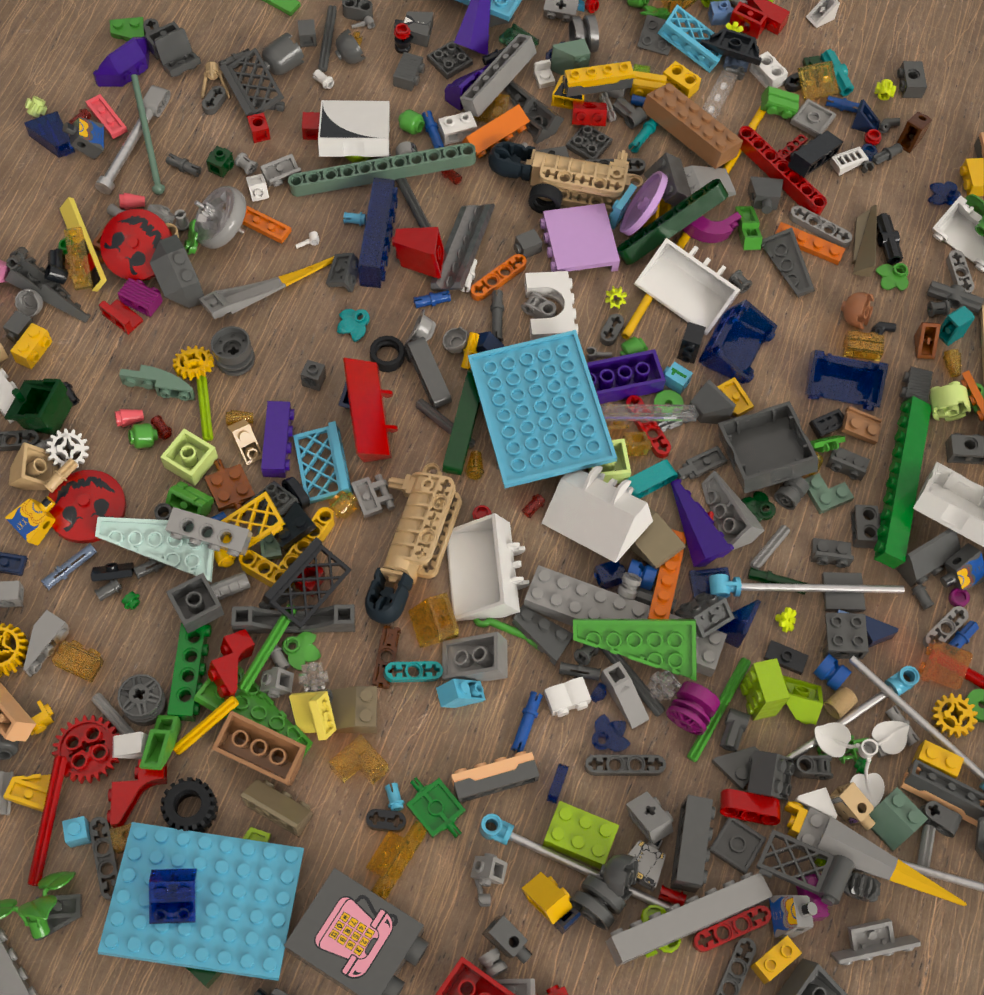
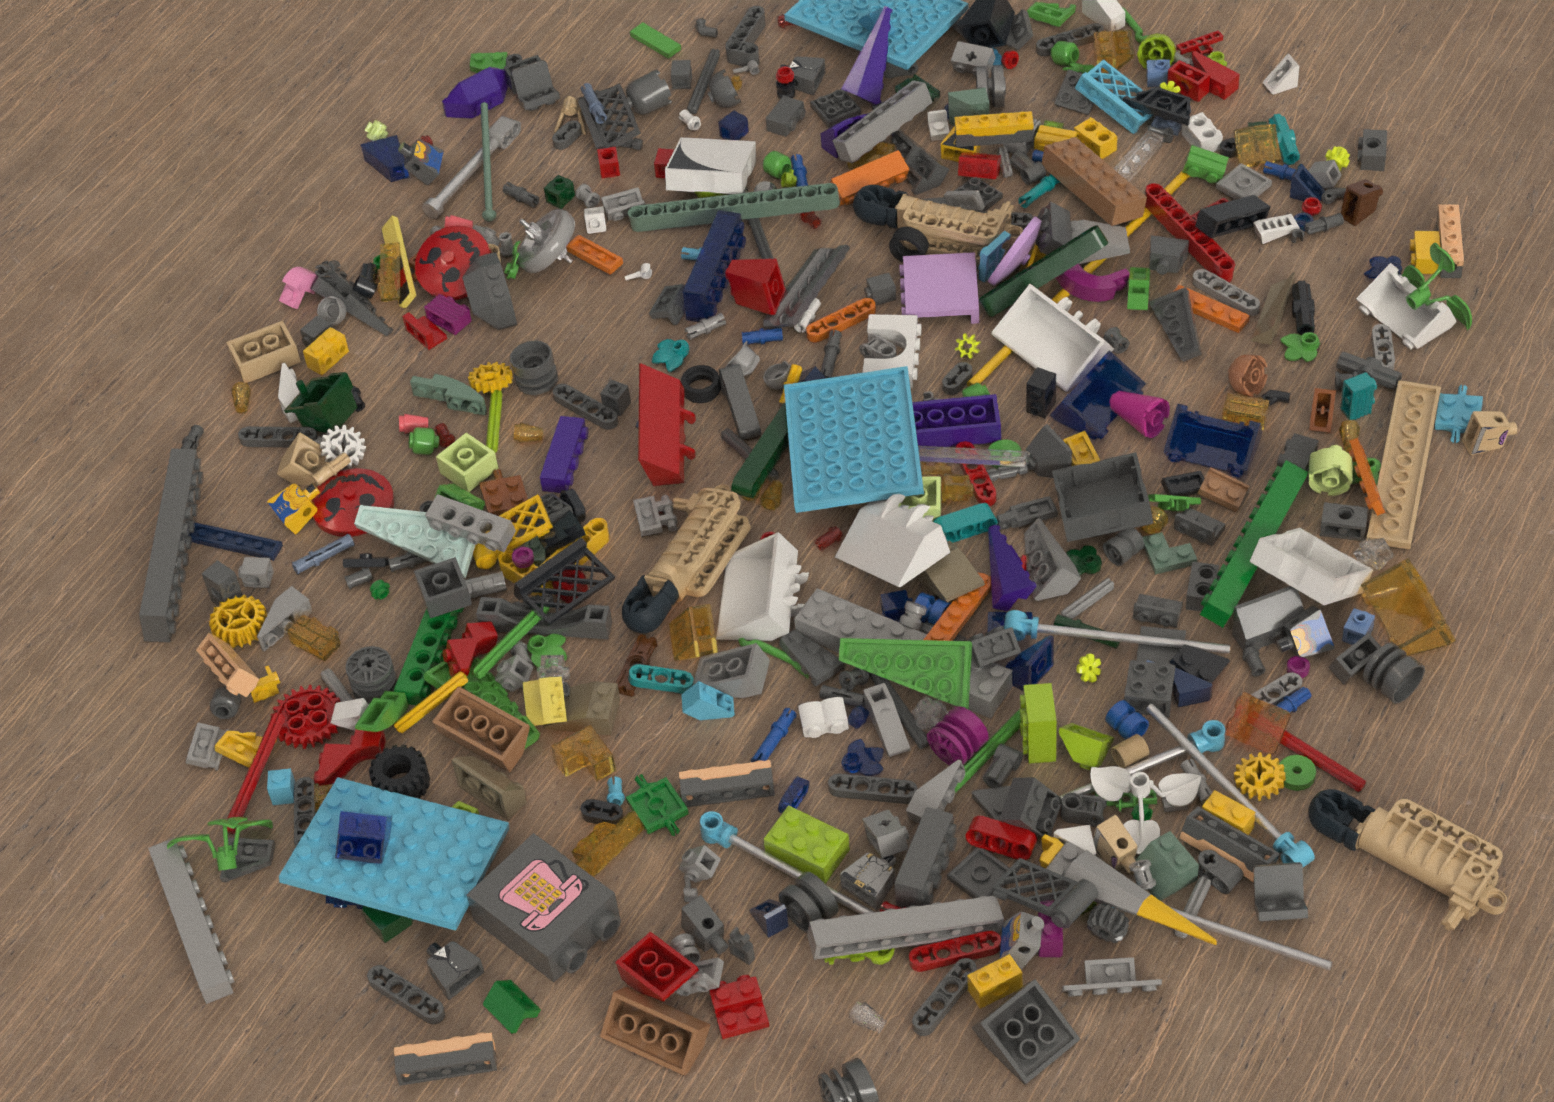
camera: 20 degrees right, 15 degrees down
(106, 116) = (449, 144): coral plate -> none
(234, 299) = (550, 322): light grey plate -> none
(237, 72) = (595, 106): none -> sand blue pin
(245, 441) = (529, 454): tan slope -> none
(262, 558) = (523, 557): none -> magenta tile
(288, 381) = (582, 409): none -> dark grey beam
(337, 455) = (625, 465): medium azure fence -> none
(343, 504) = (620, 520): clear yellow head -> none
(364, 84) = (733, 126): none -> clear blue brick
(379, 292) = (705, 326): none -> light grey pin
(424, 137) = (788, 179): none -> lime plate
(456, 127) = (824, 170): white brick -> none
(544, 954) = (741, 946): none -> dark grey plate
(547, 897) = (755, 893): yellow brick -> none
(584, 150) = (965, 199): none -> light grey plate
(620, 874) = (838, 873): dark grey cylinder -> none
(677, 377) = (1019, 428): medium azure brick -> none
(681, 776) = (936, 792): none -> light grey slope
(777, 353) = (1141, 411): none -> dark pink cone
(787, 657) = (1080, 705): black plate -> none
(879, 606) = (1199, 662): none -> black wing
(880, 105) = (1326, 173): none -> light grey brick
(881, 834) = (1143, 874): none -> light grey bush

